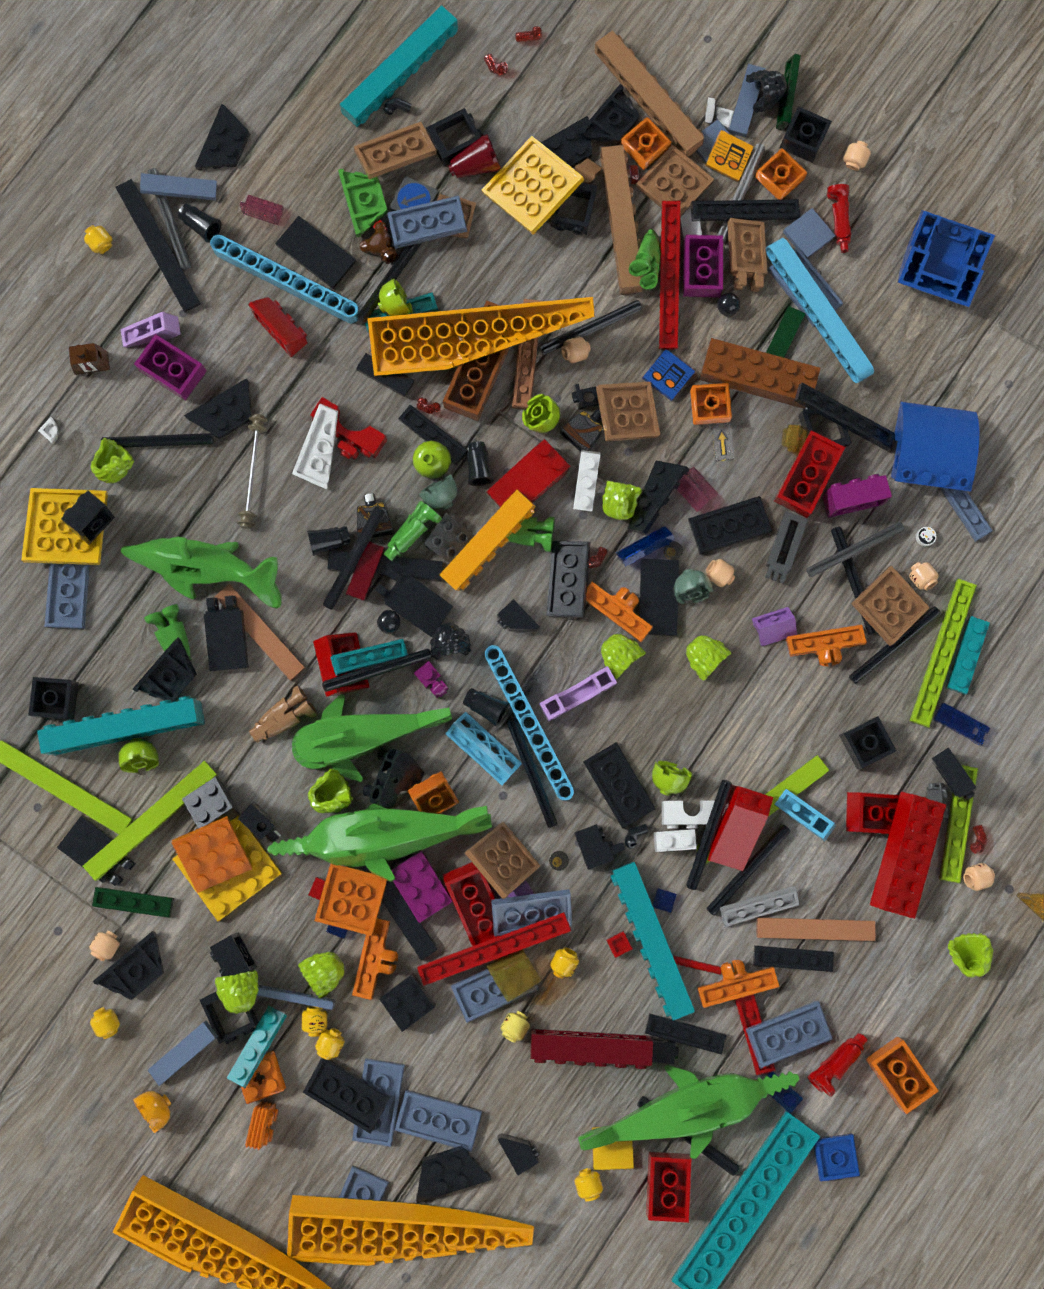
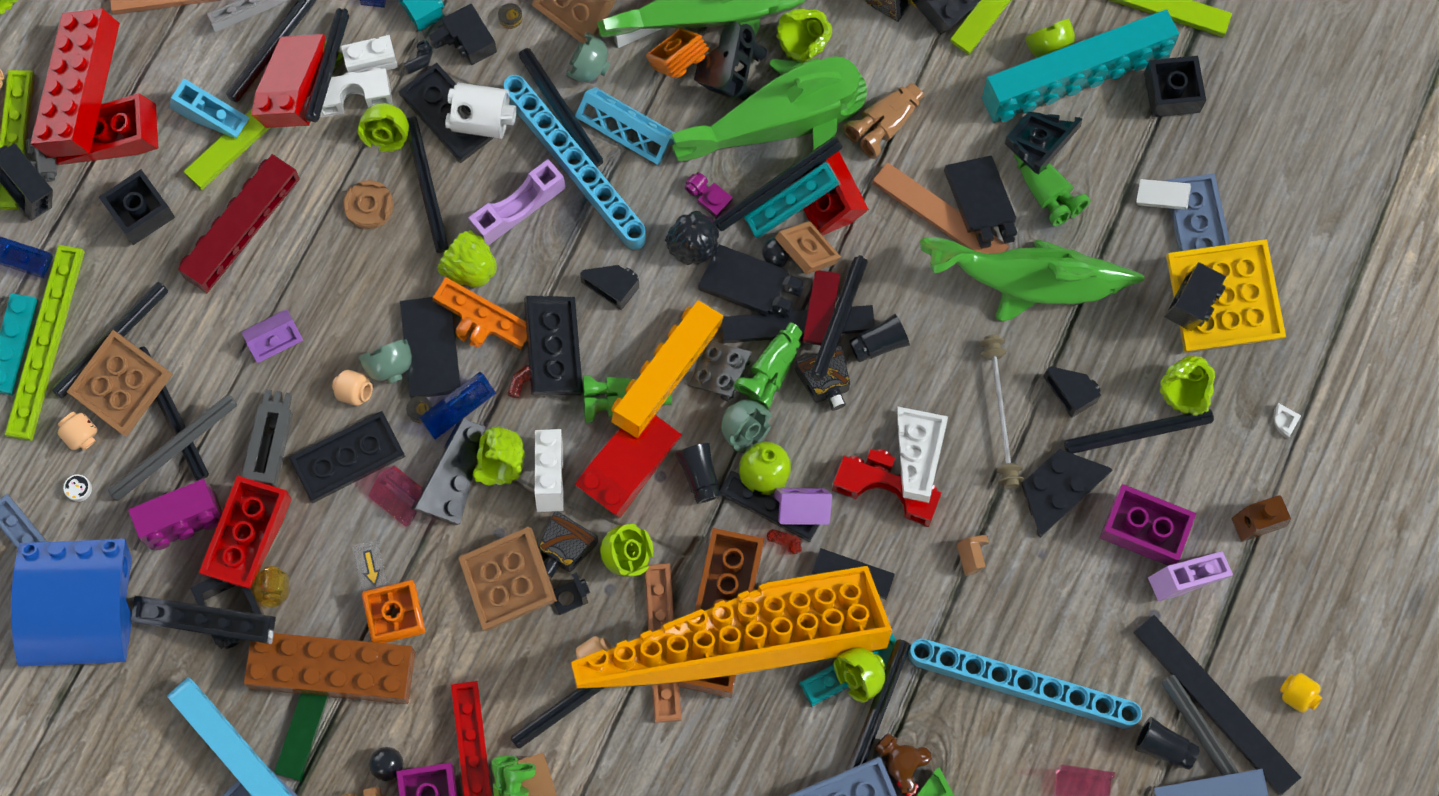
camera: 170 degrees right, 10 degrees down
(87, 614) = (1163, 194): none -> white tile
(195, 476) = (1072, 389): none -> black slope
(279, 325) = (1015, 611): red slope -> none
(299, 373) = (971, 553): none -> medium nougat tile
(315, 252) = (991, 735): black tile -> none
(365, 618) = (807, 247): none -> medium nougat tile
(409, 427) = (804, 505): none -> medium lavender panel
(485, 705) = (632, 171): black plant -> none
(503, 805) = (589, 60): none -> sand green cylinder
(595, 770) = (488, 110): none -> white cylinder
(644, 726) = (426, 186): none -> black axle
(668, 374) = (458, 648): blue tile -> none
(690, 719) = (368, 204): none -> medium nougat tile
(706, 655) = (356, 278): lime hair -> none
(790, 718) = (238, 223): none -> dark red brick
(826, 643) = (200, 323): orange plate -> none

